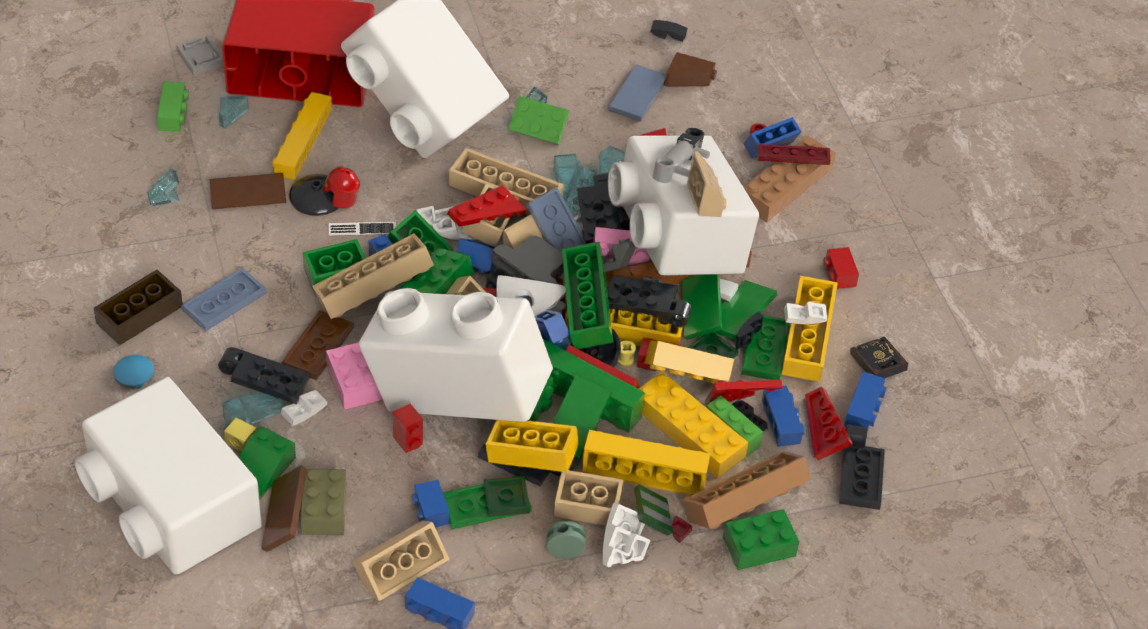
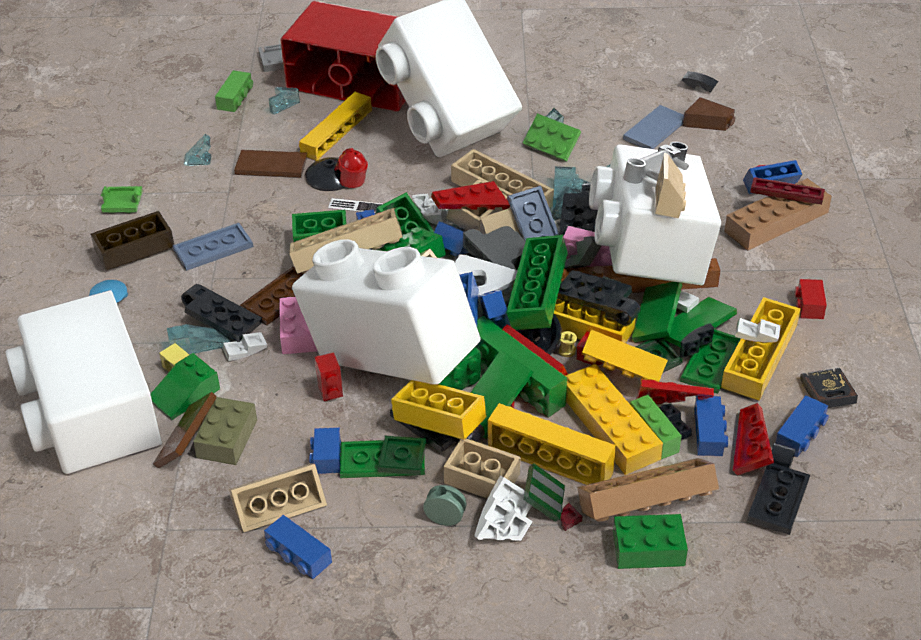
camera: 20 degrees right, 5 degrees down
(101, 258) = (121, 198): none -> bright green piece

